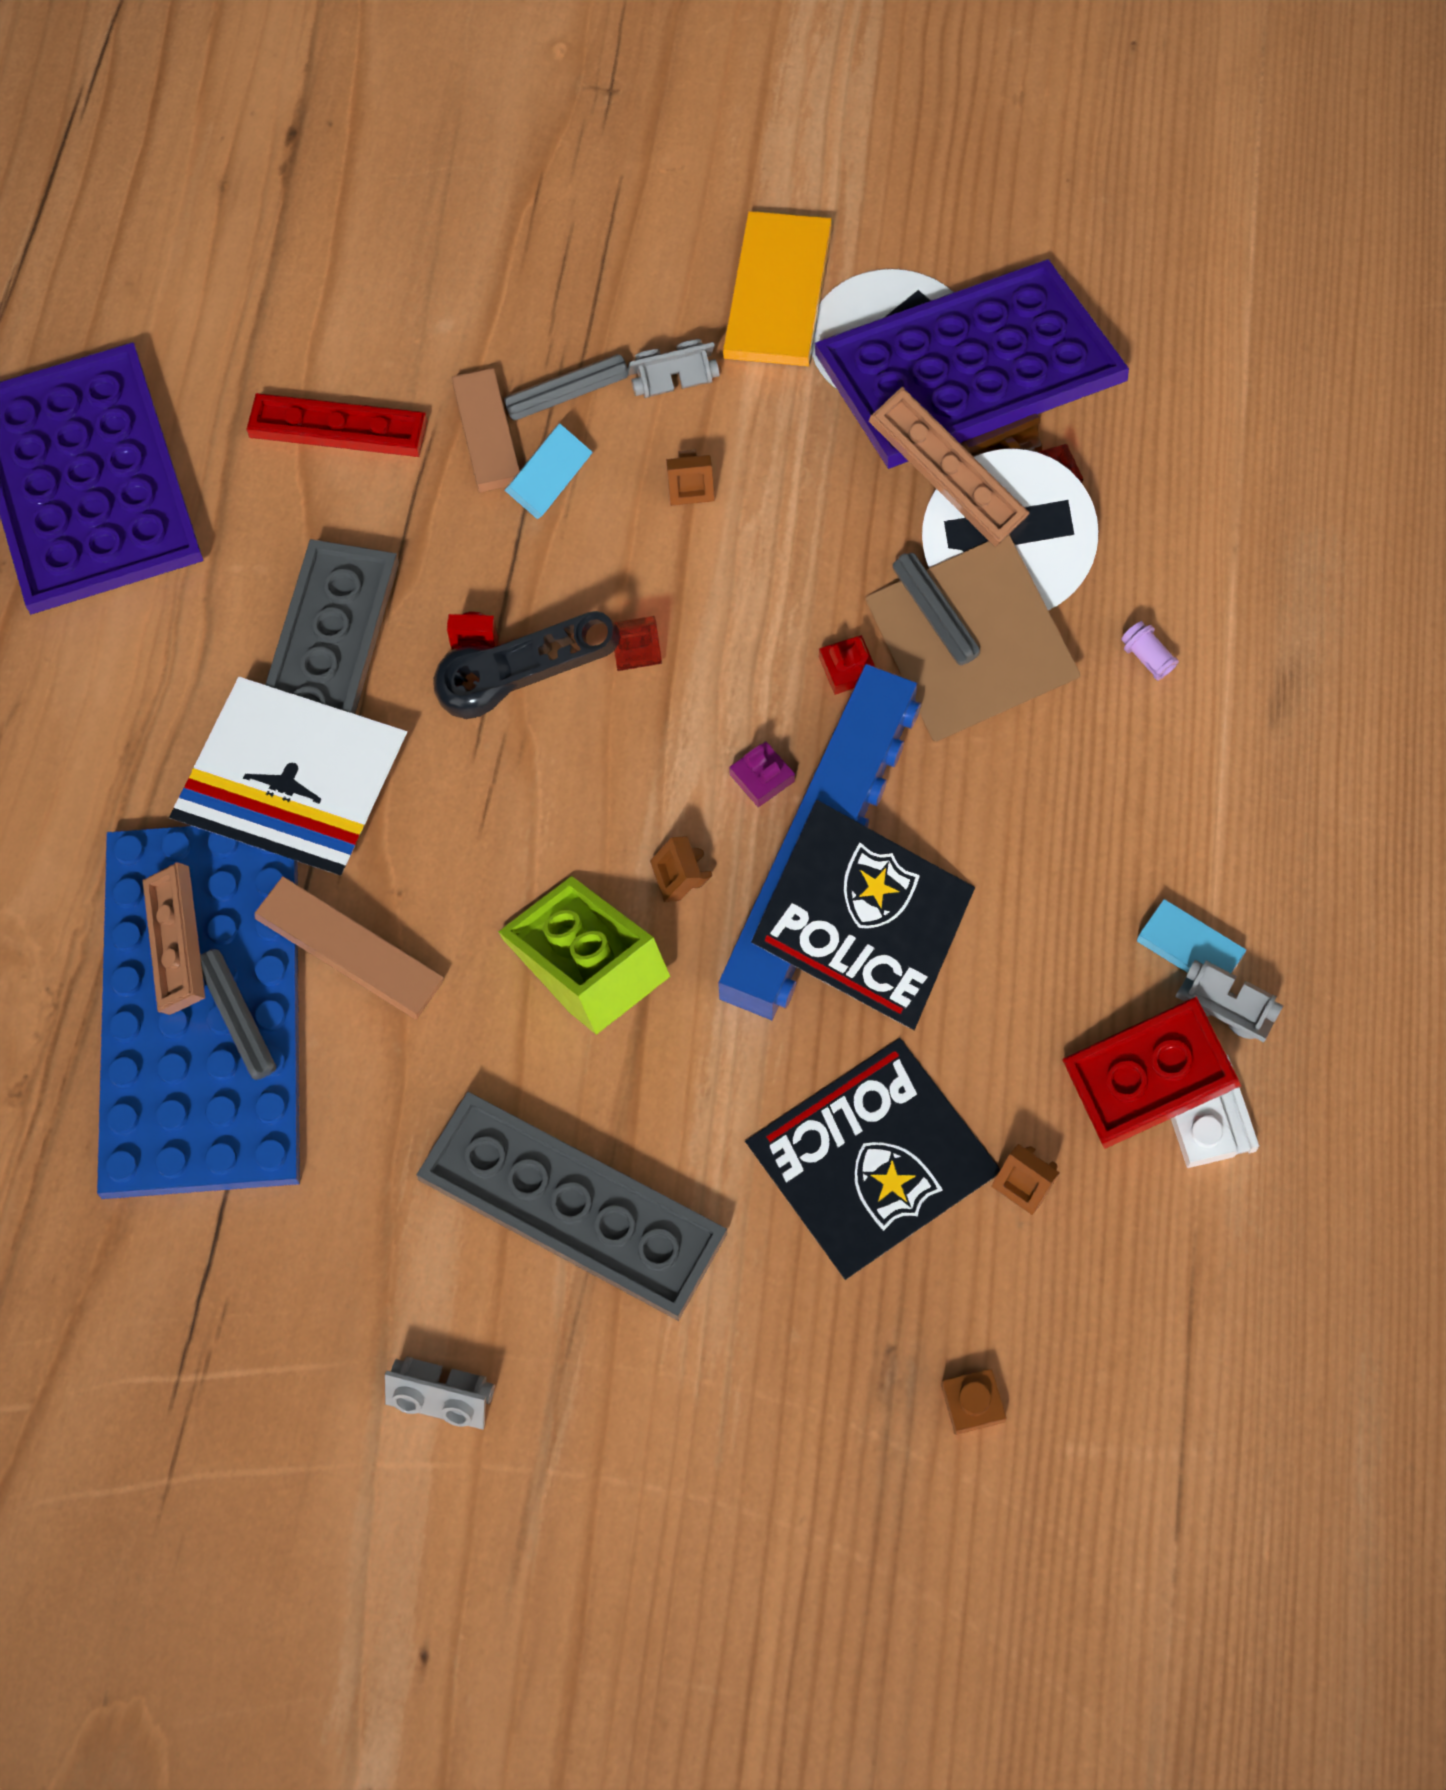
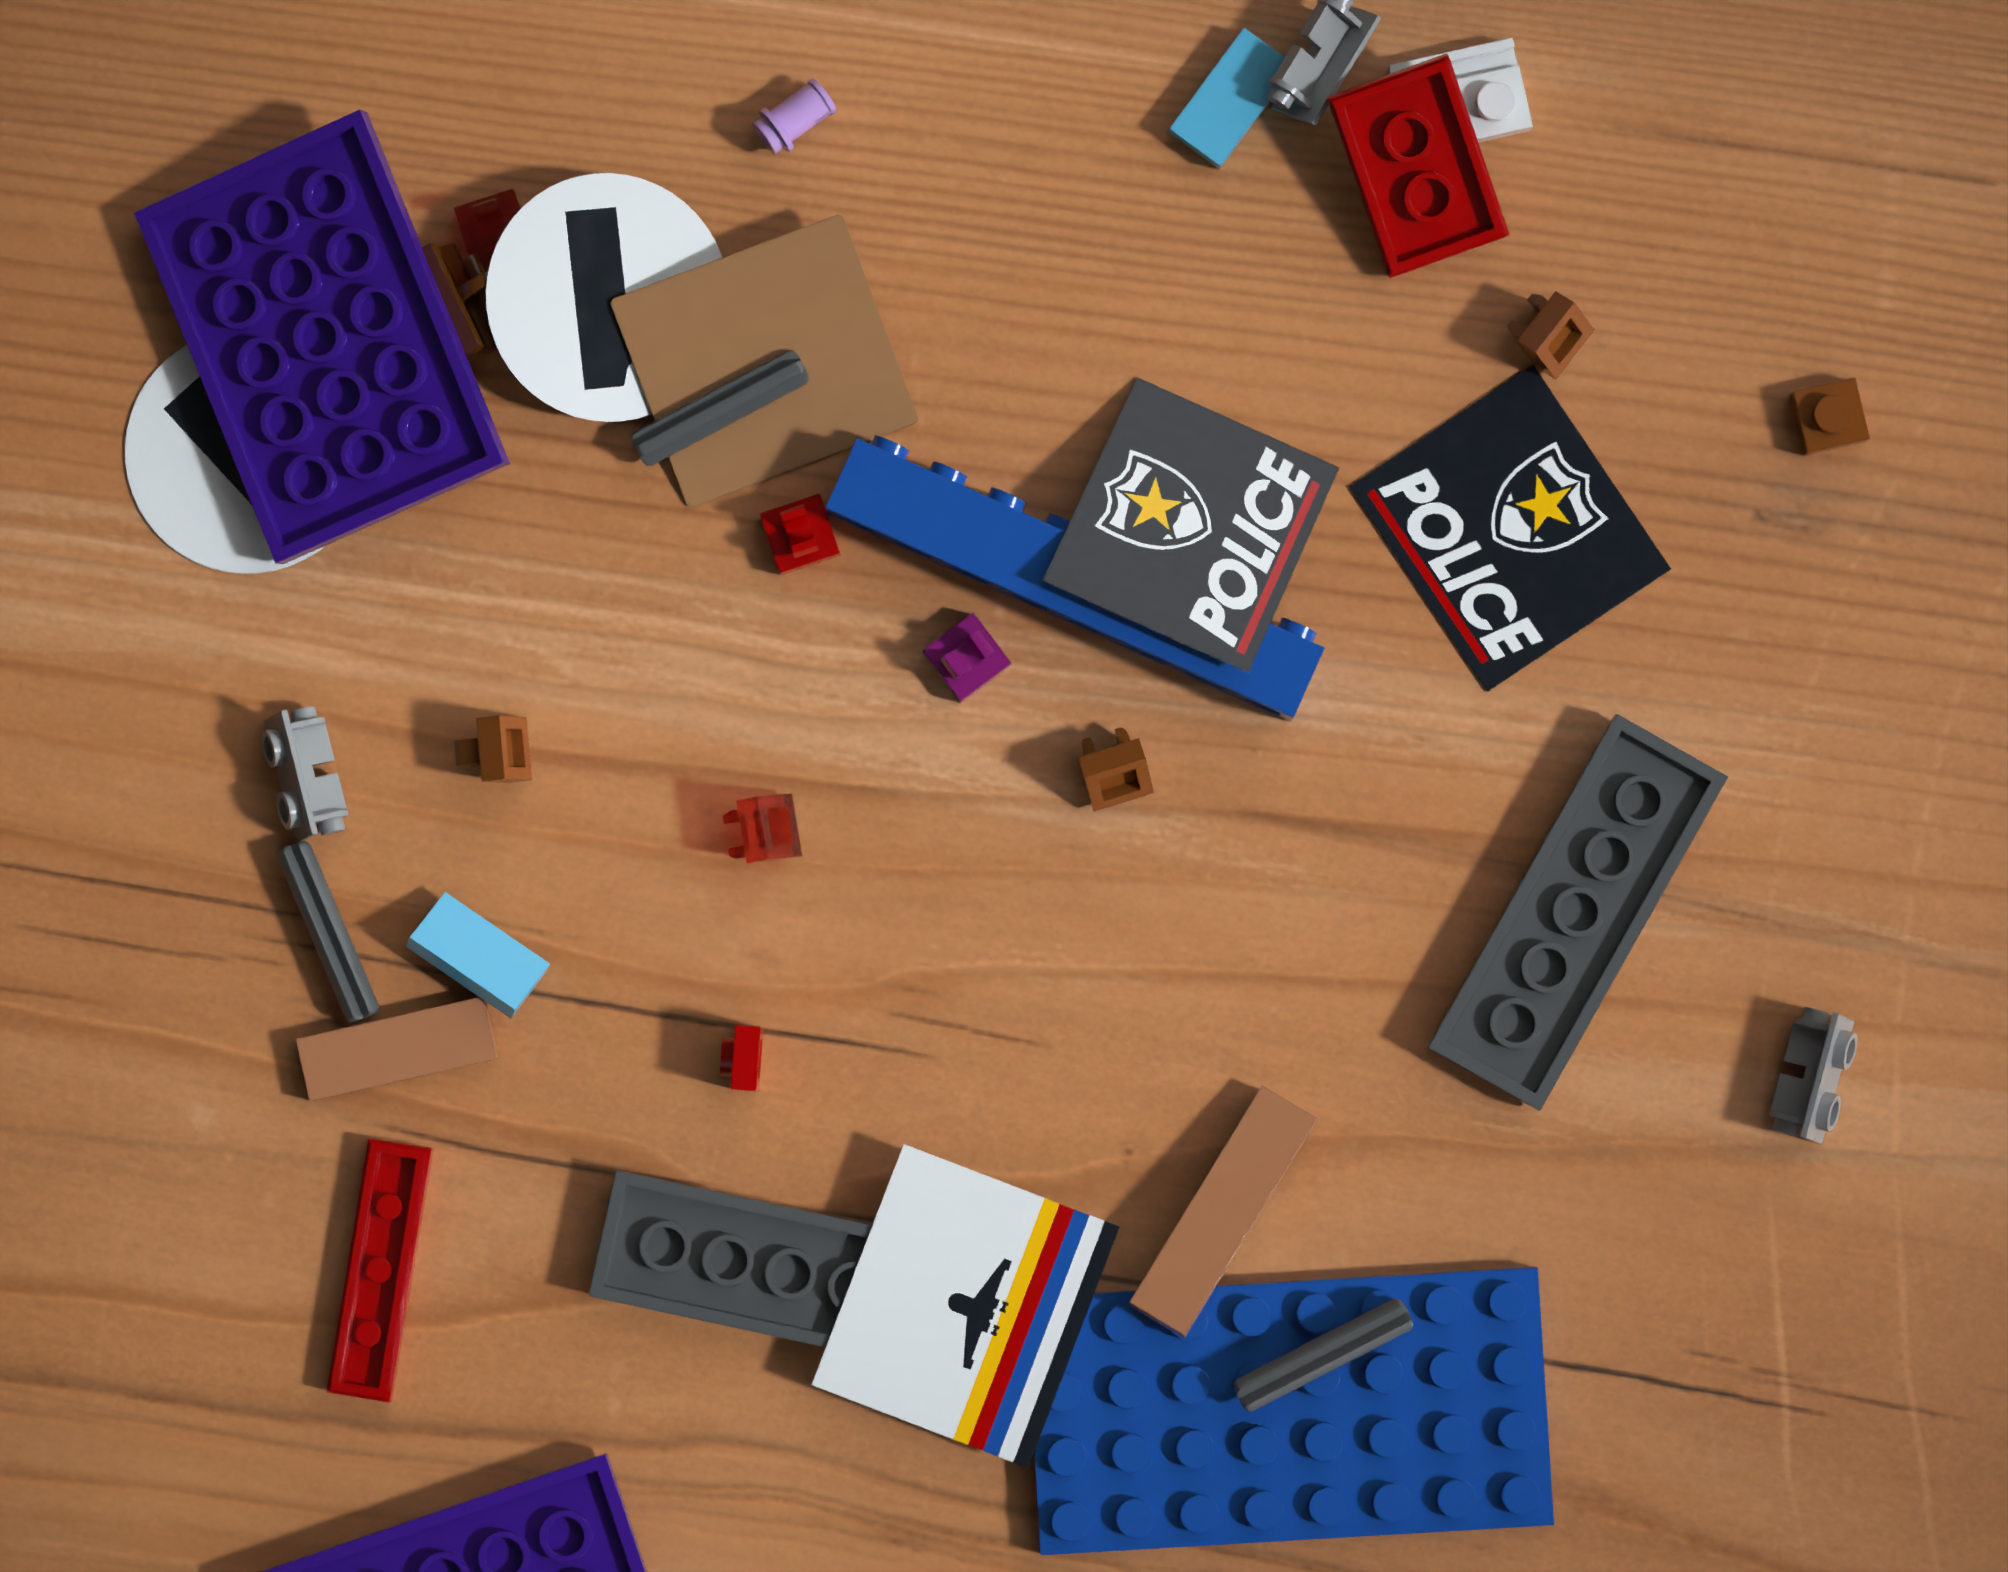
camera: 90 degrees left, 20 degrees up
(173, 939) = (1218, 1443): nougat tile -> none
(516, 664) = (805, 1001): black beam -> none
(586, 953) = (1232, 898): lime slope -> none
(778, 288) = (161, 615): light orange tile -> none
(948, 467) = (521, 377): nougat tile -> none

